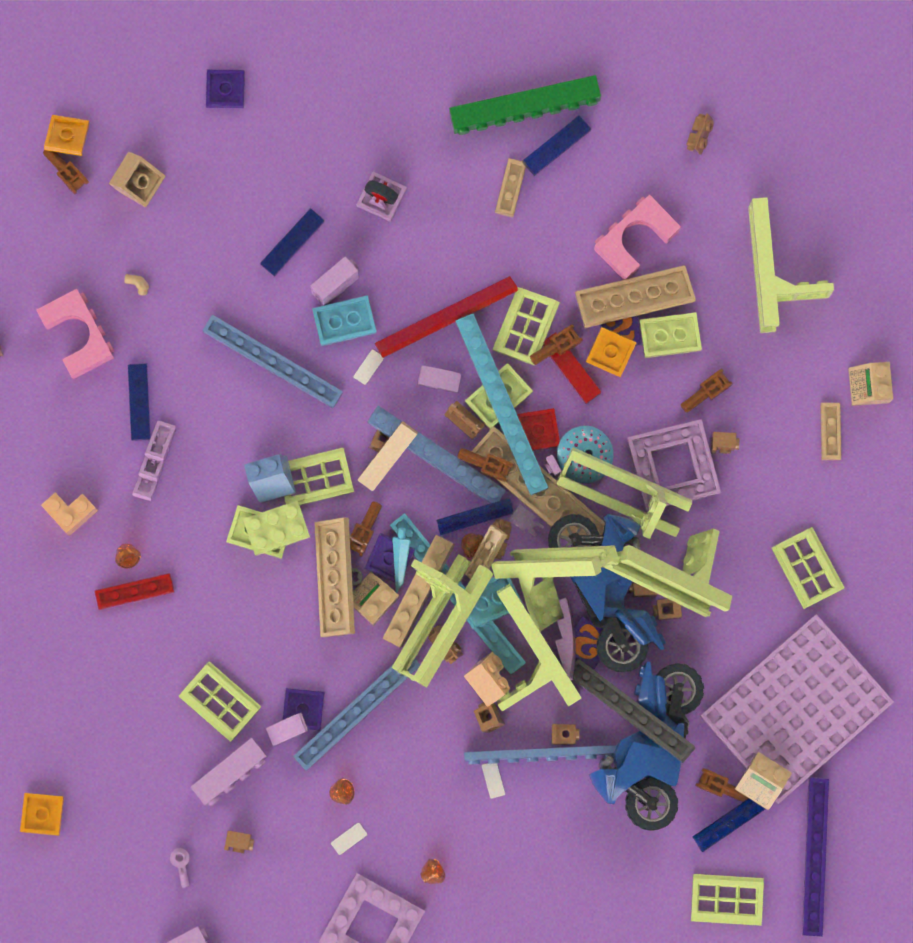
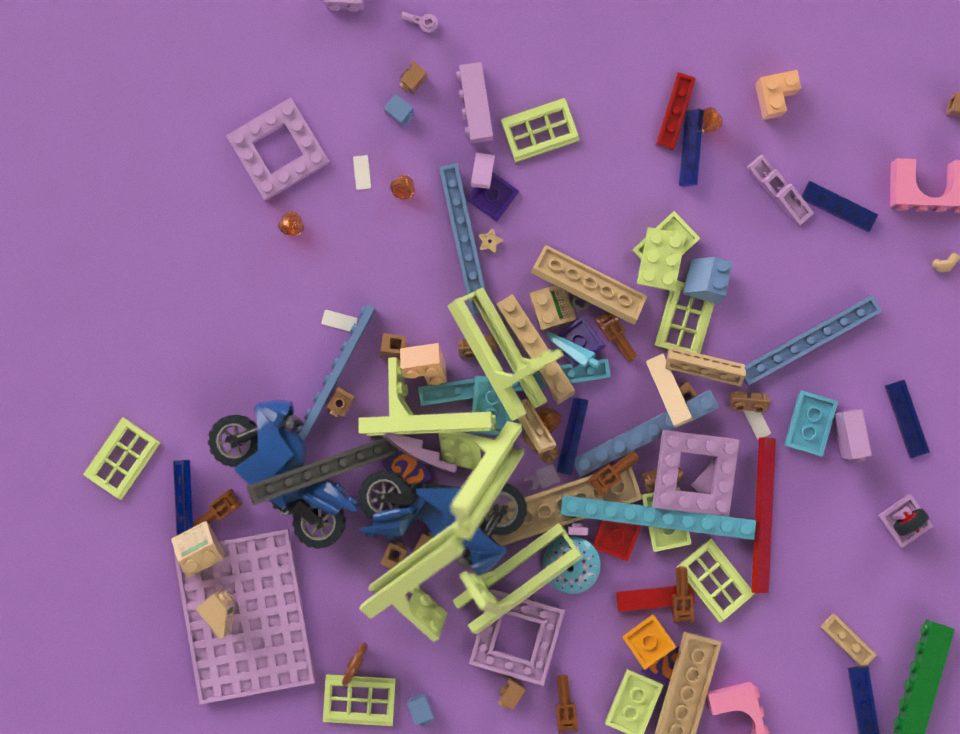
camera: 125 degrees right, 5 degrees up
(161, 558) = (691, 148): none -> clear blue tile
(275, 835) = (399, 110): none -> medium blue brick
(340, 688) = (490, 236): none -> tan plate
(351, 437) = (705, 366): none -> tan fence
(353, 375) = (757, 402): none -> medium nougat hinge
(436, 426) = (723, 477): none -> lavender plate
(778, 588) = (354, 664): none -> dark orange plate
(783, 510) = (421, 709): none -> medium blue brick
(804, 731) = (218, 612): none -> tan slope
(815, 857) = (111, 555): dark purple plate -> none

